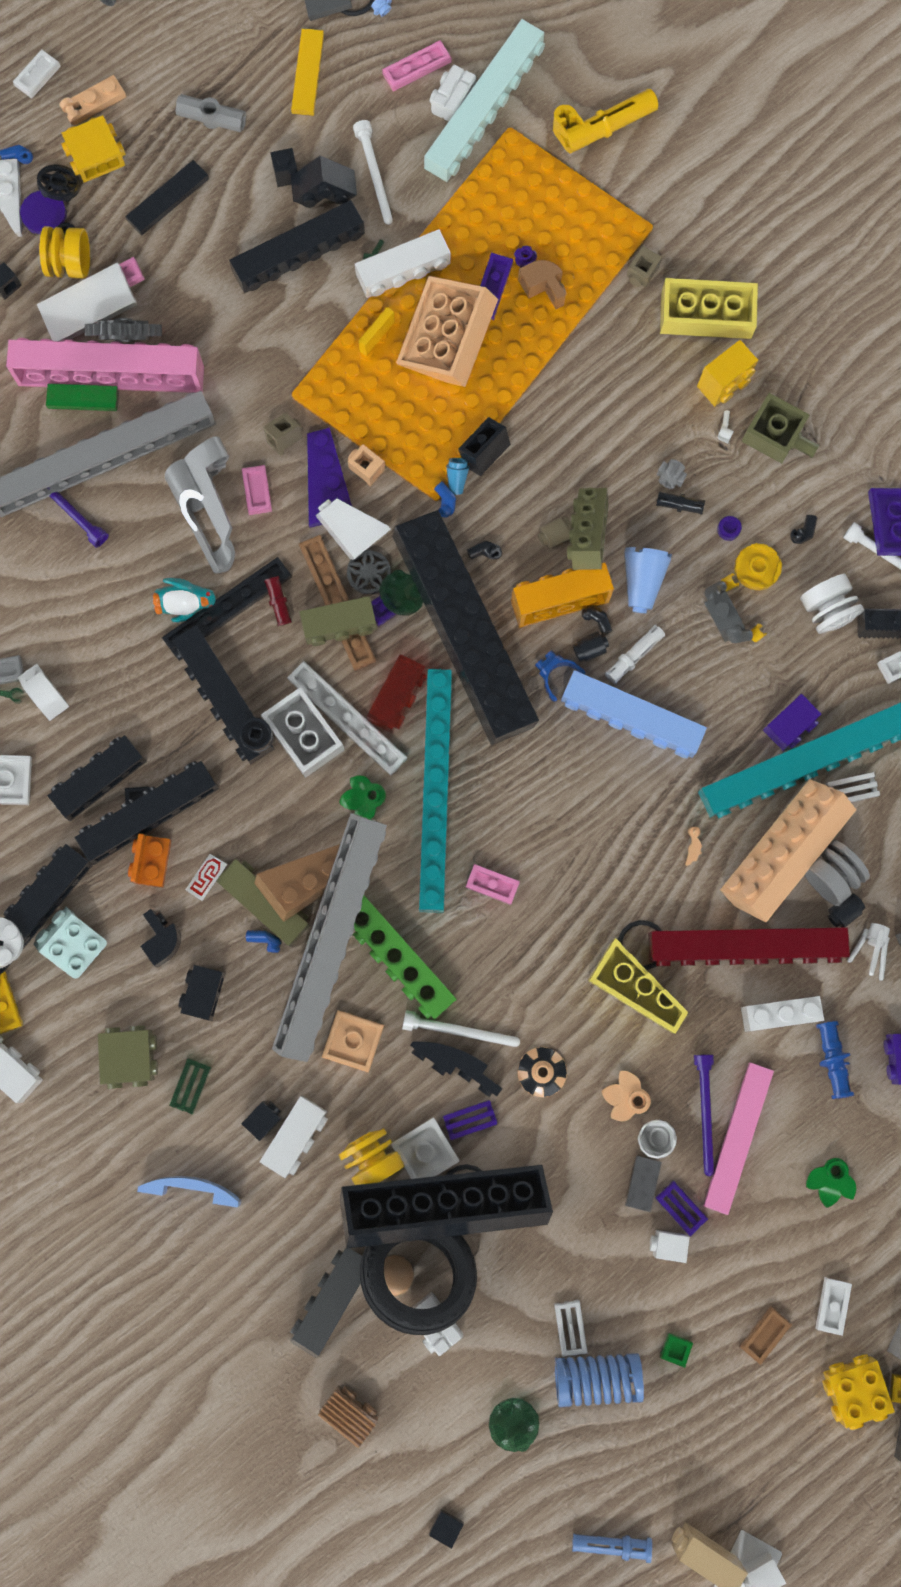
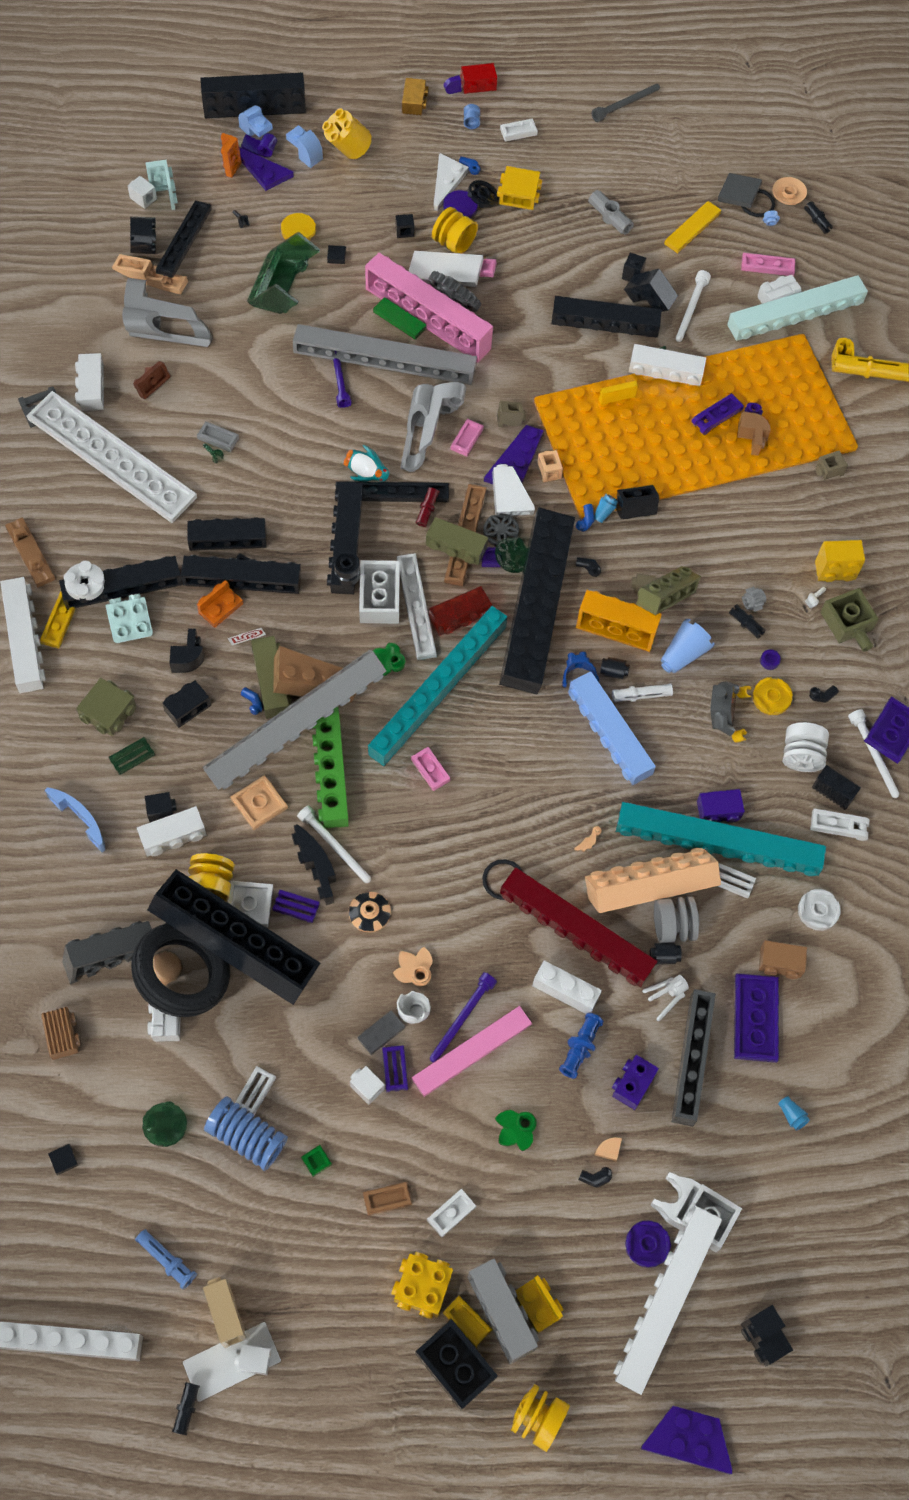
camera: 35 degrees right, 15 degrees down
(42, 692) = (235, 463): white brick -> none
(93, 100) = (543, 164): light nougat plate -> none
(167, 197) = (545, 242): black tile -> none
(447, 330) = (666, 419): light nougat slope -> none
(599, 616) = (636, 654): black arm -> none
(633, 985) = (475, 894): light yellow wedge -> none
(708, 308) = (857, 515): light yellow brick -> none

